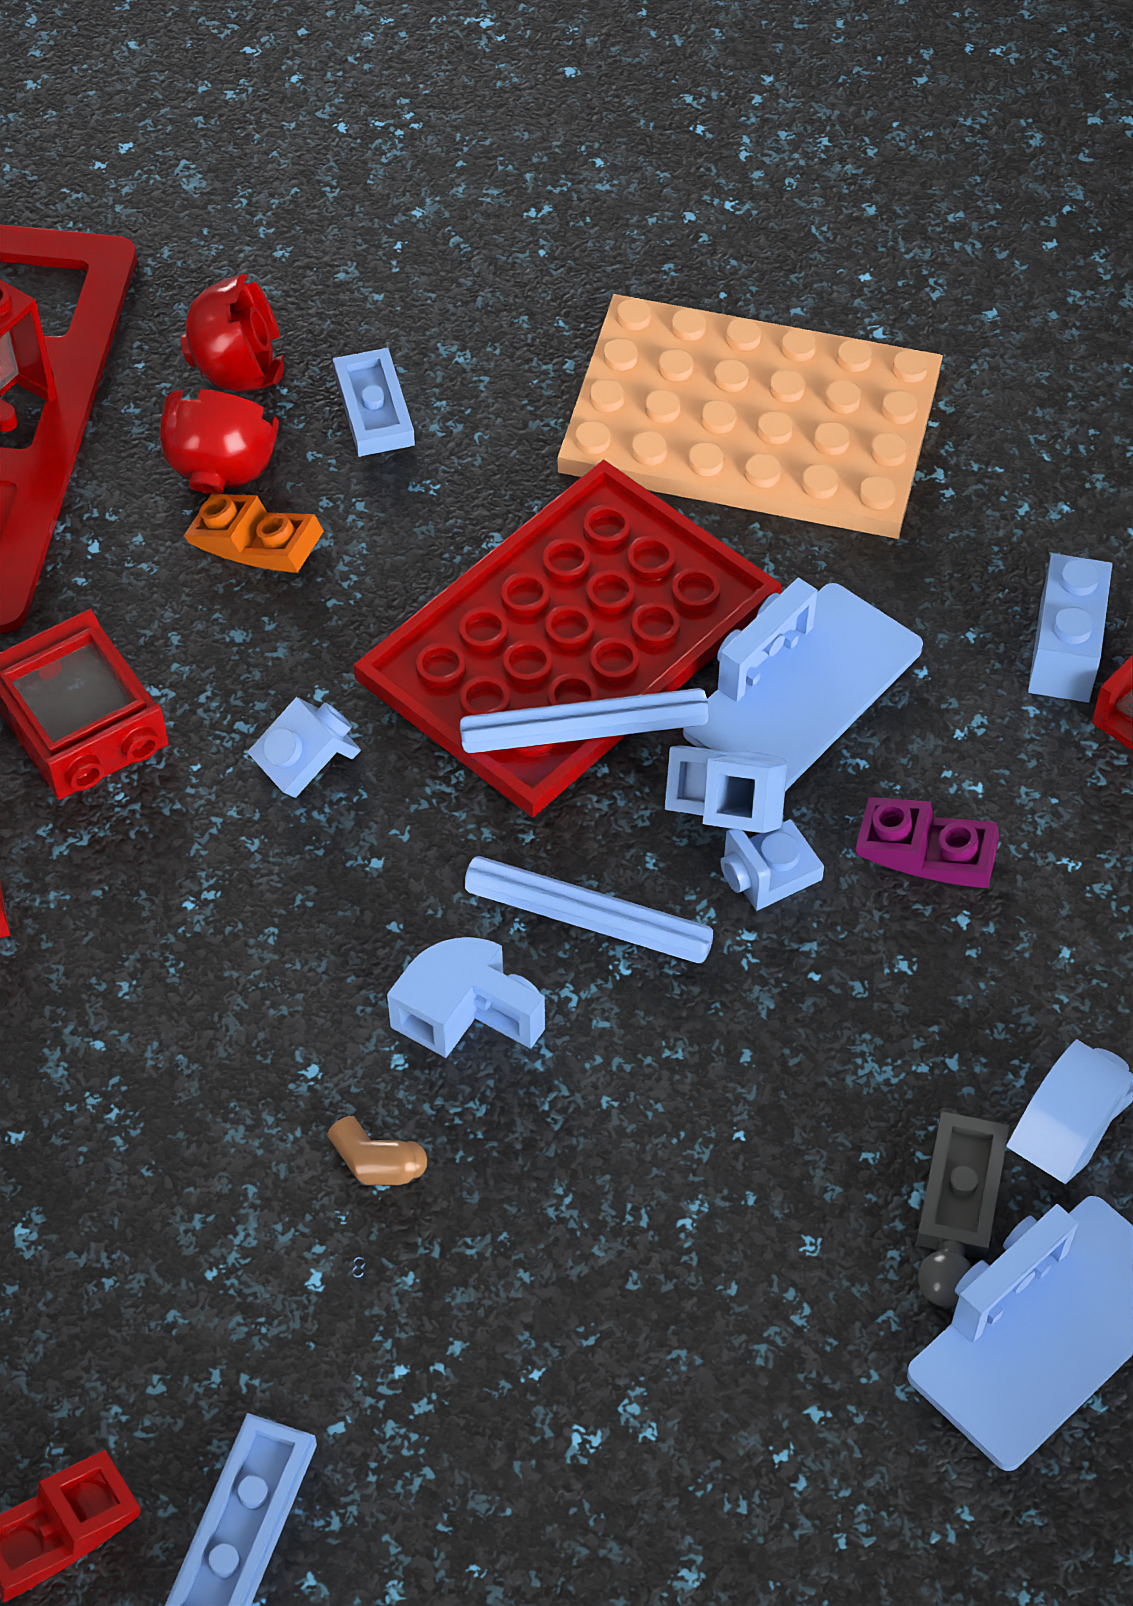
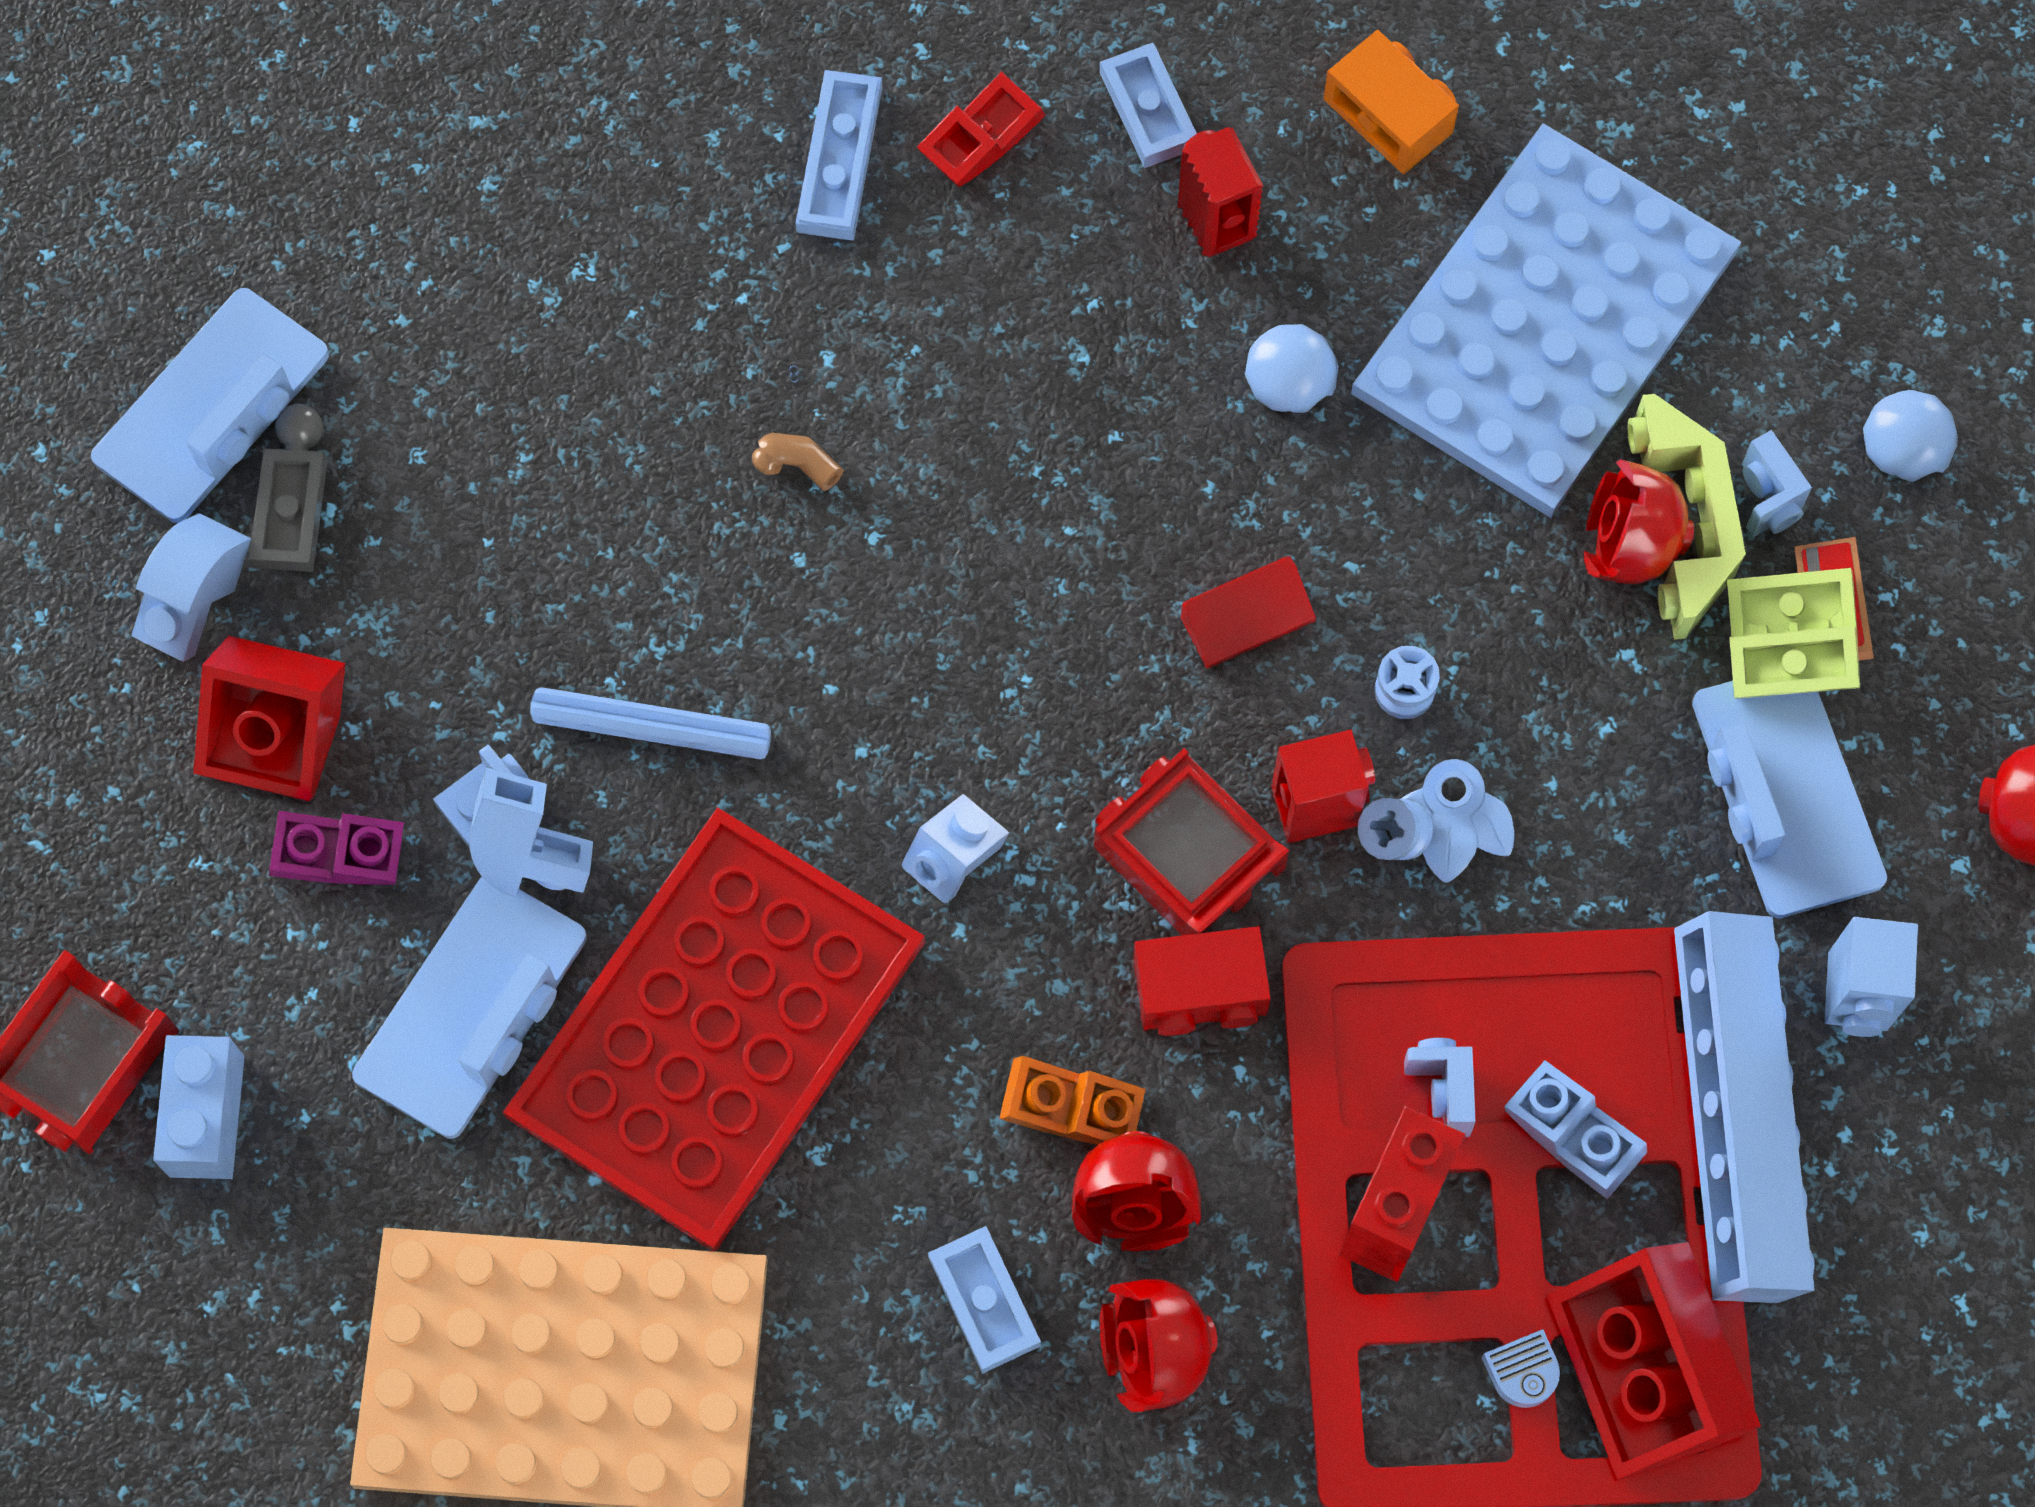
camera: 170 degrees right, 15 degrees up
(122, 588) = (1201, 980): none -> red brick
(462, 983) = (755, 614): light blue brick -> none
(584, 720) = (678, 892): light blue axle -> none
(989, 970) = (267, 717): none -> red slope

